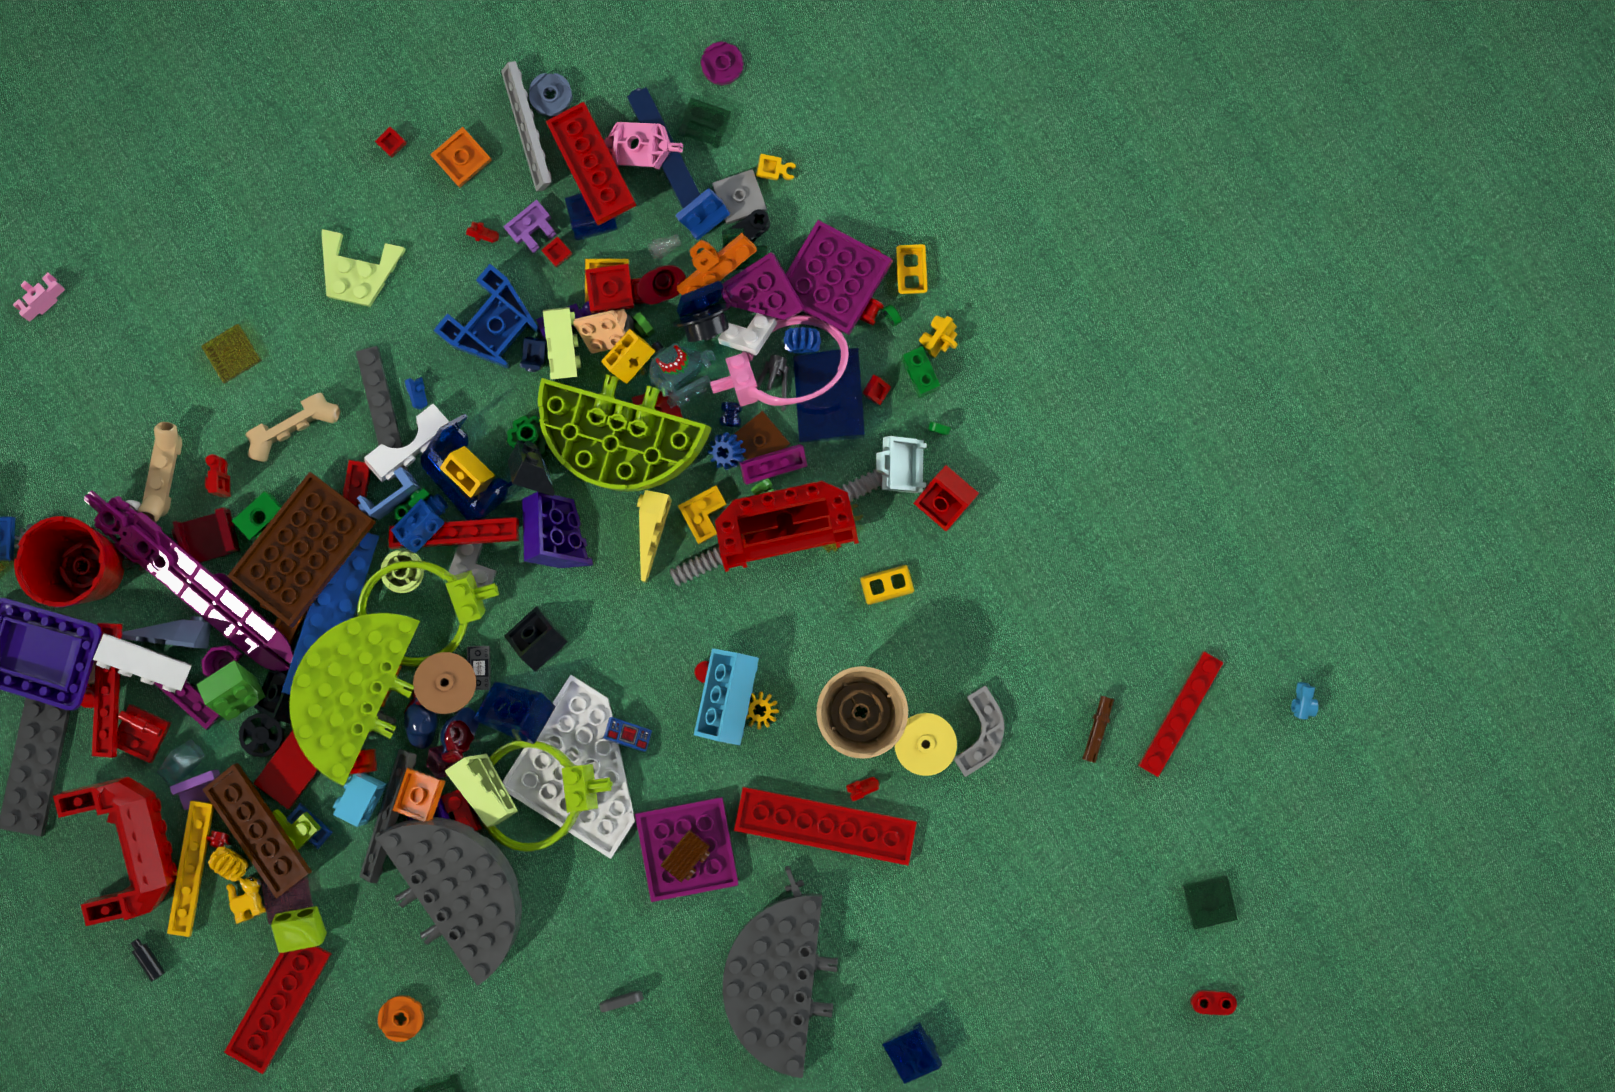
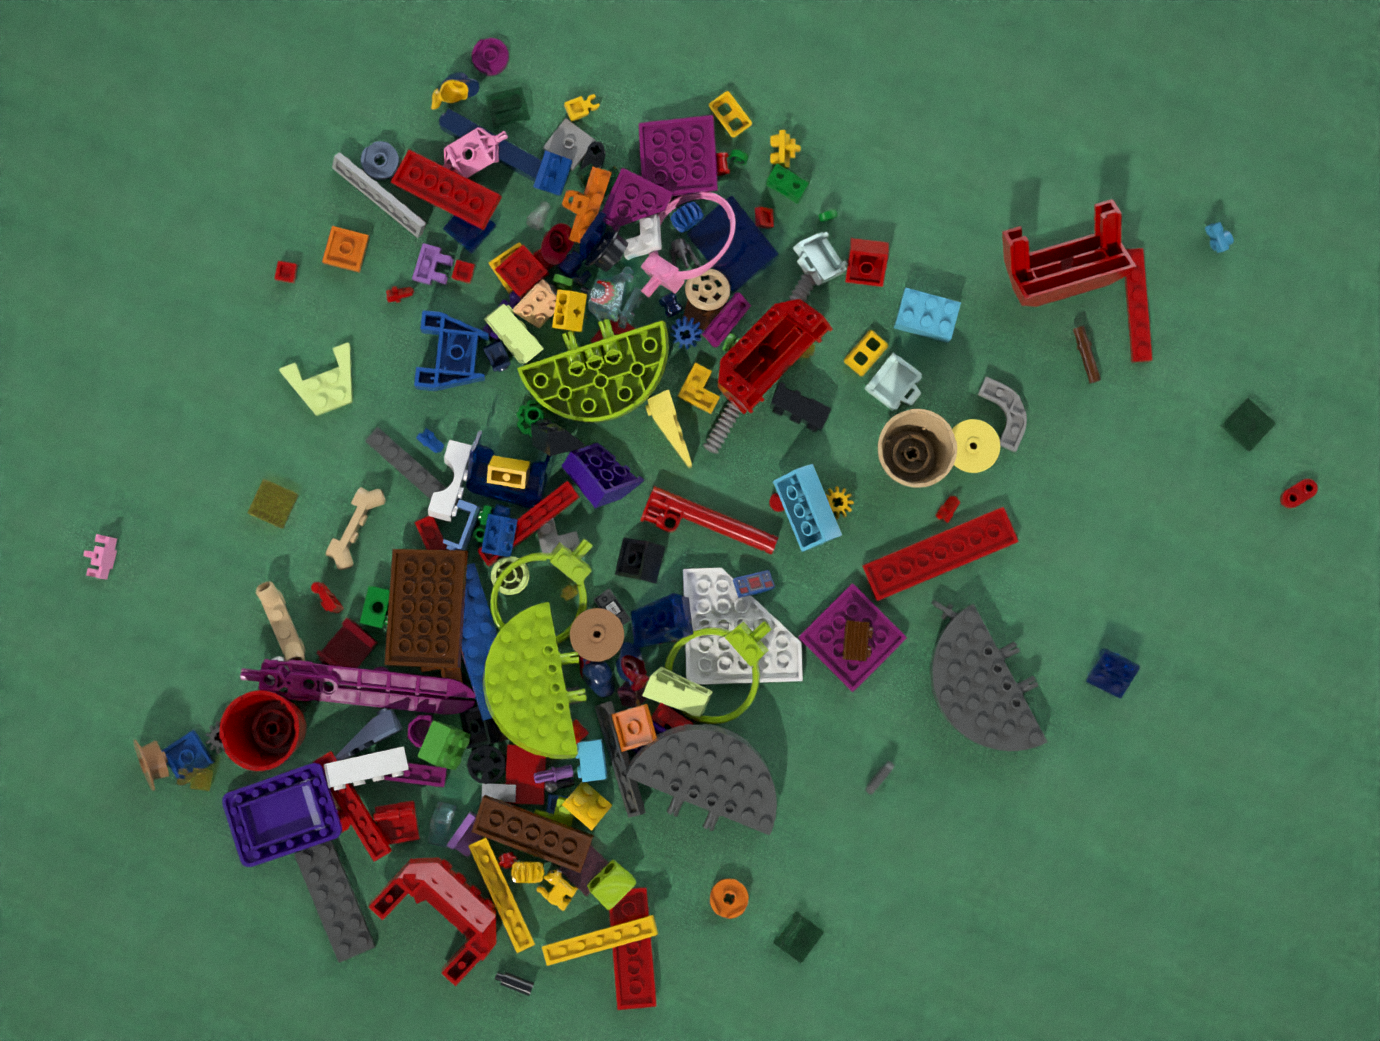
camera: 35 degrees left, 0 degrees up
(251, 975) = (600, 940): none -> yellow plate
(255, 770) = (502, 792): none -> flat silver sticker
(307, 796) = (551, 786): none -> piece
(316, 787) = (553, 774): none -> medium lavender axle
(326, 839) = (587, 805): none -> yellow plate
(448, 624) = (569, 592): none -> clear yellow plate
(597, 603) = (668, 505): none -> red piece
(660, 314) = (571, 265): none -> clear blue piece
(665, 72) = (454, 88): none -> yellow hair
(769, 439) = (711, 303): none -> tan plate
(785, 596) = (799, 408): none -> black wedge
(894, 631) = (894, 382): none -> light aqua piece
(968, 587) = (927, 315): none -> medium azure brick
(1138, 632) = (1068, 266): none -> red wedge

